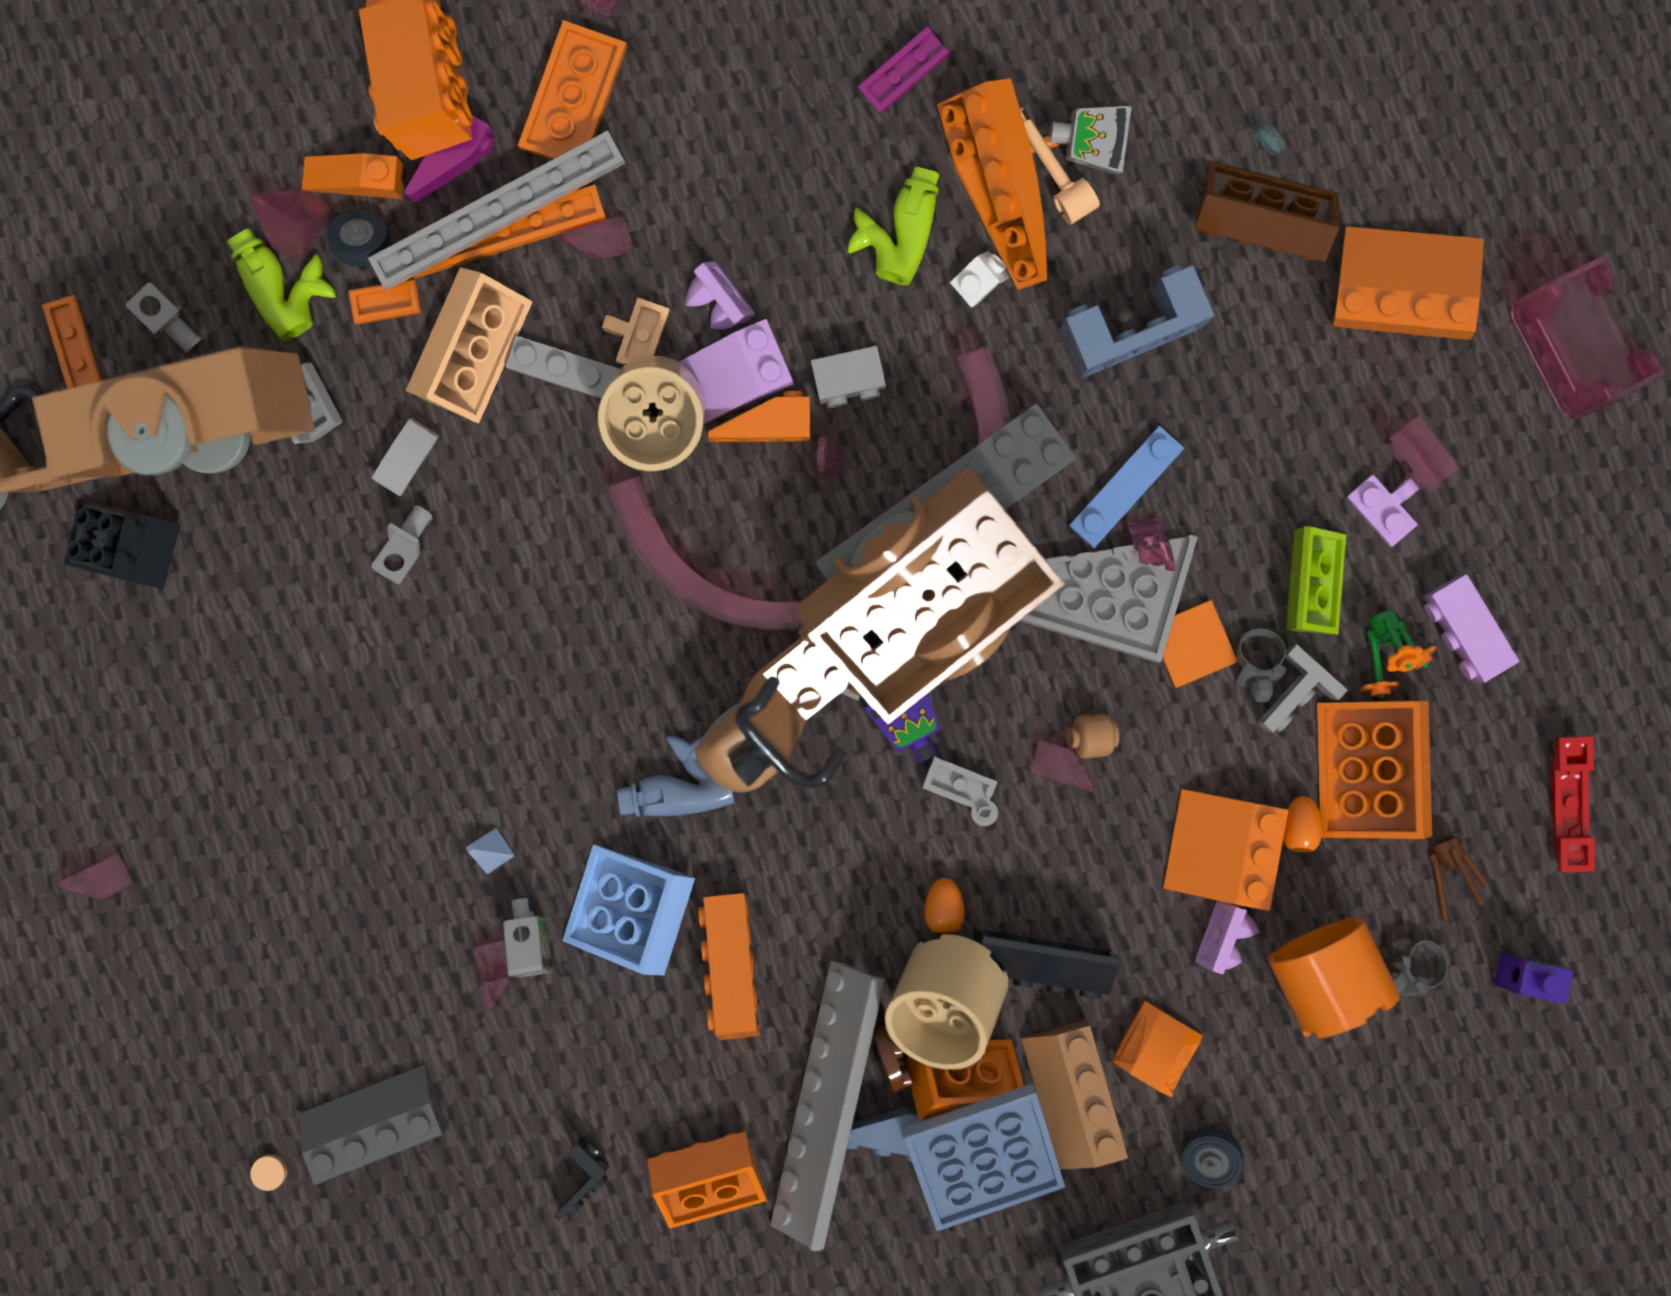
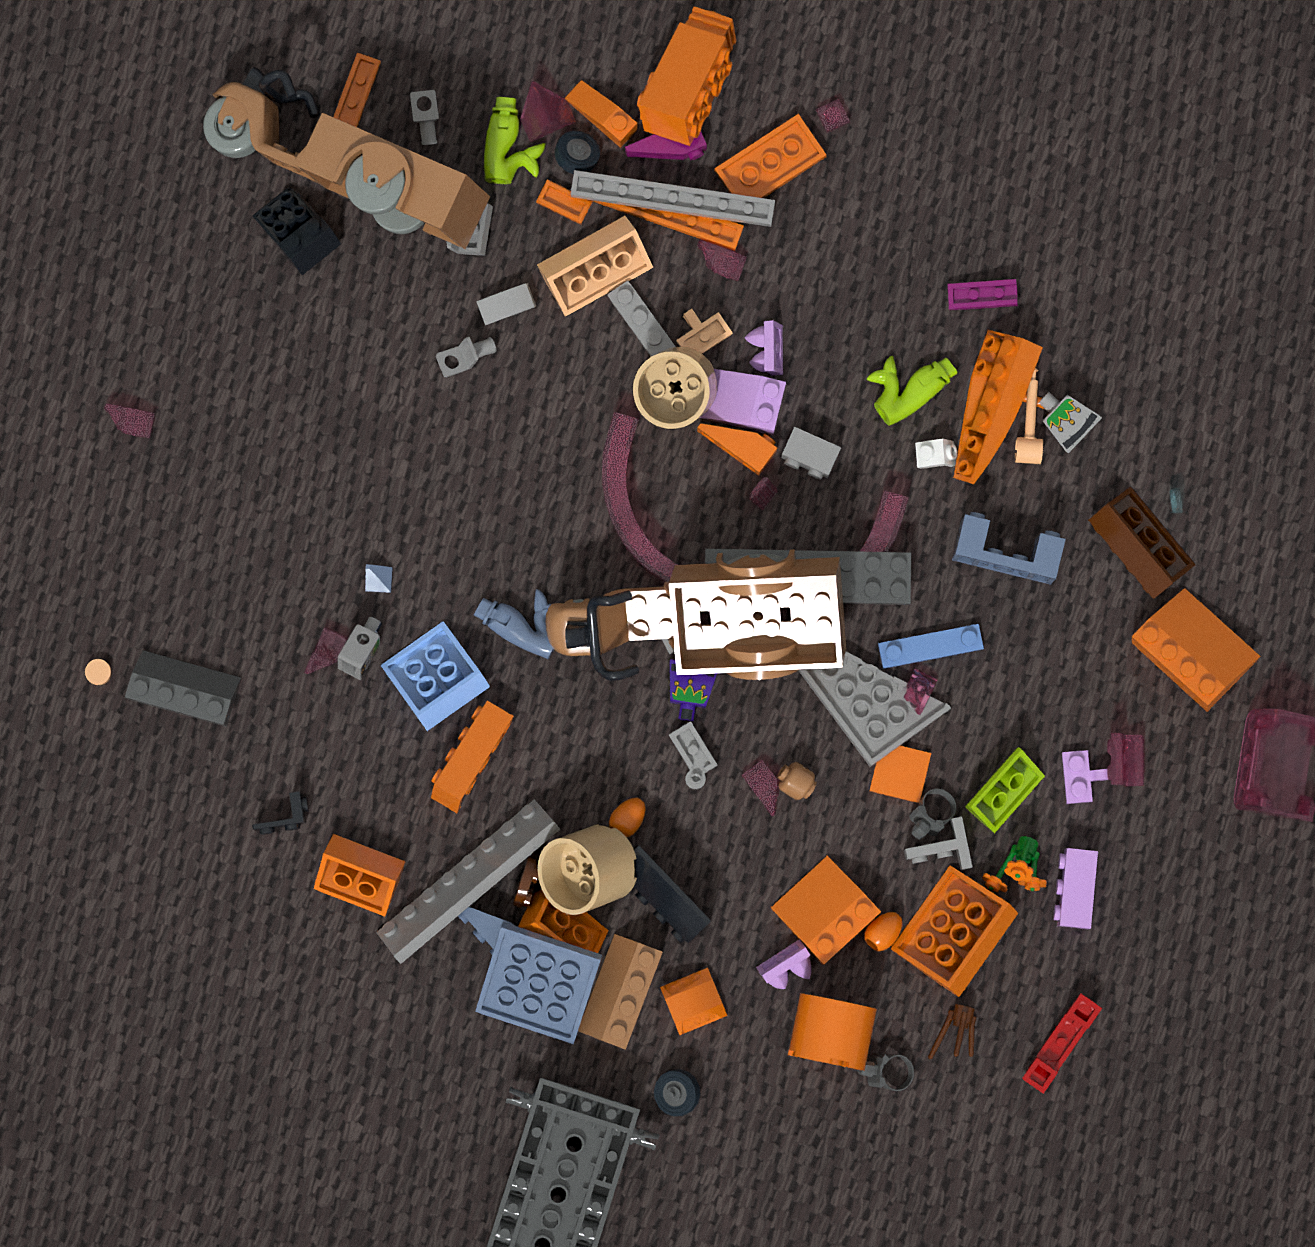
camera: 35 degrees right, 5 degrees down
(1536, 978) = (957, 1130): dark purple torso -> none

